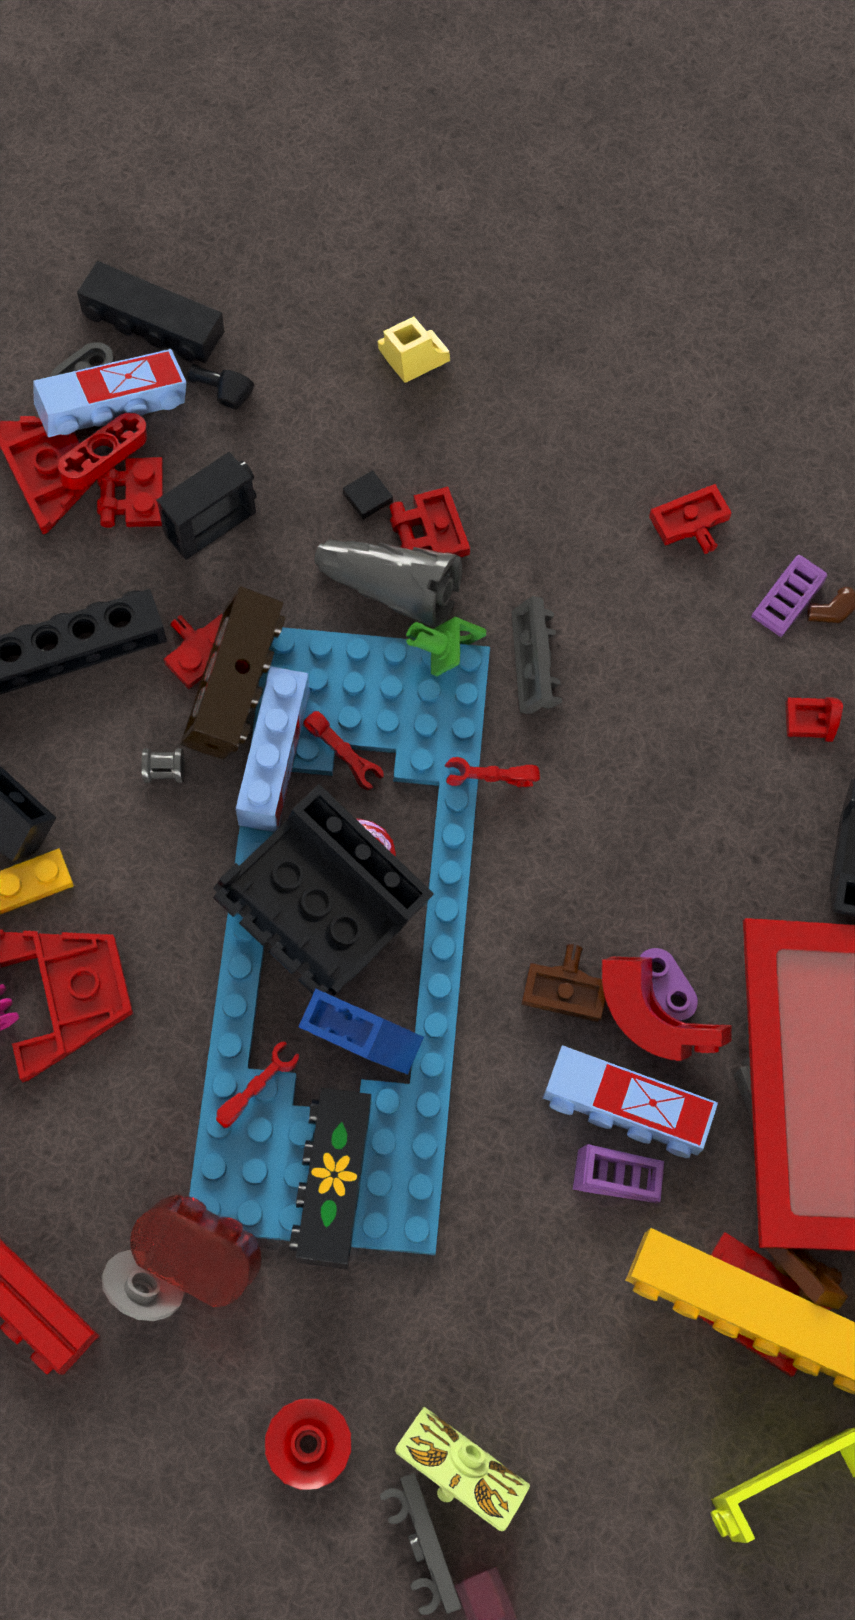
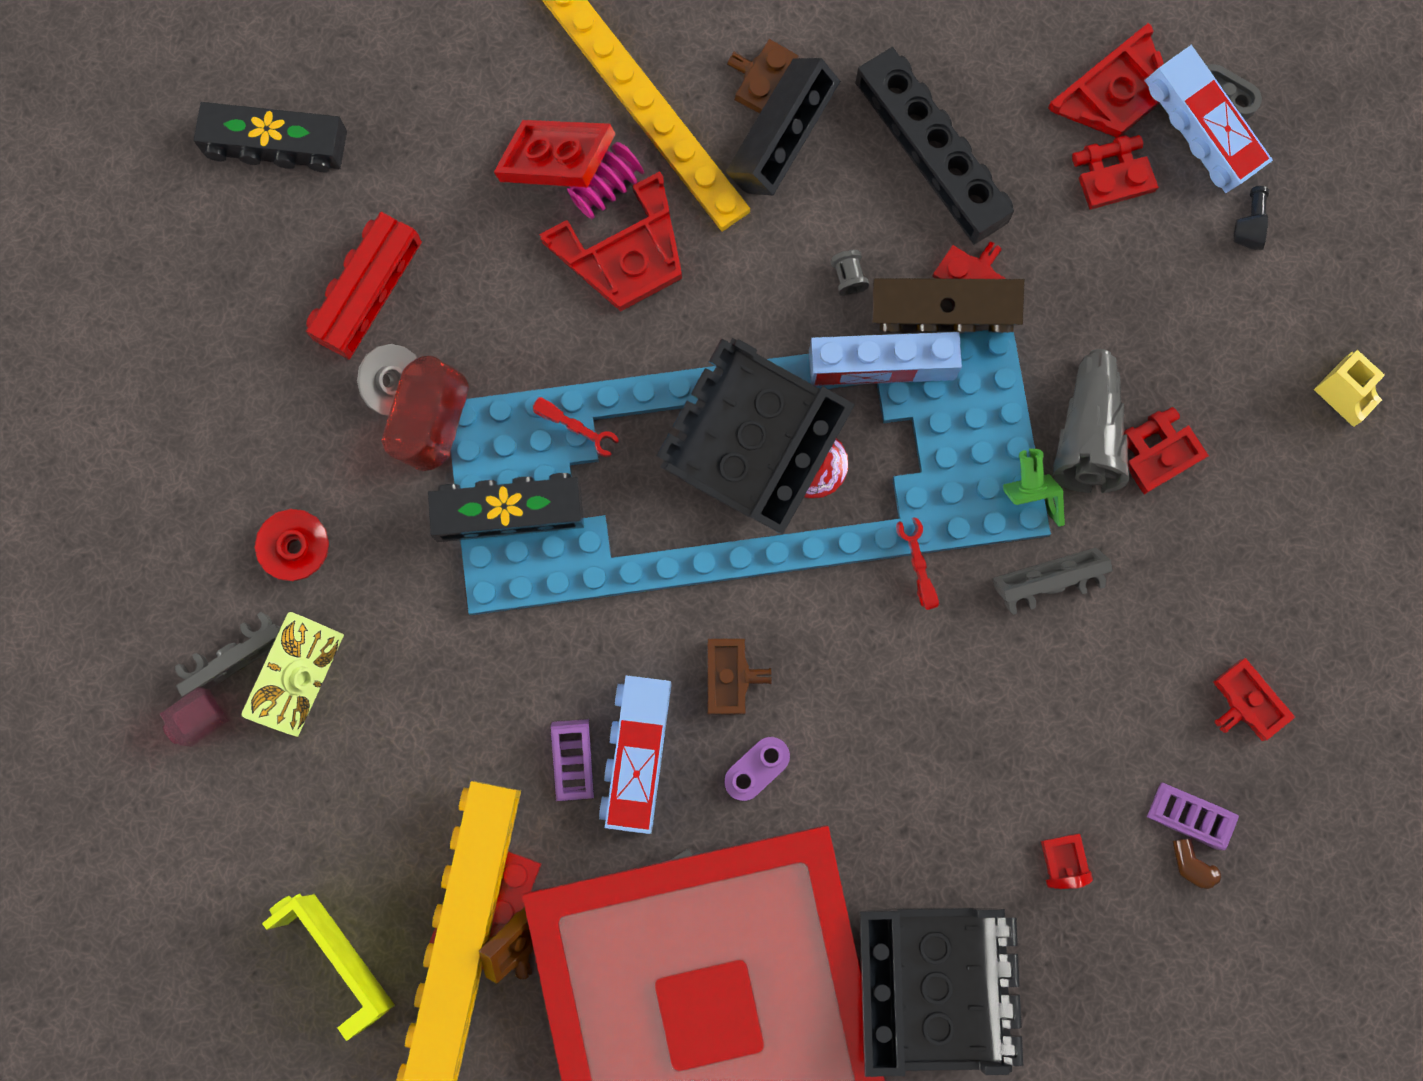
camera: 80 degrees right, 10 degrees up
(98, 465) = (1129, 134): red beam -> none
(150, 312) = (1310, 133): black brick -> none
(207, 505) = (1116, 238): black window -> none
(320, 727) = (906, 422): red piece -> none
(361, 1032) = (633, 498): blue window -> none
(367, 495) = (1179, 384): black tile -> none
(642, 1019) = (715, 752): red arch -> none

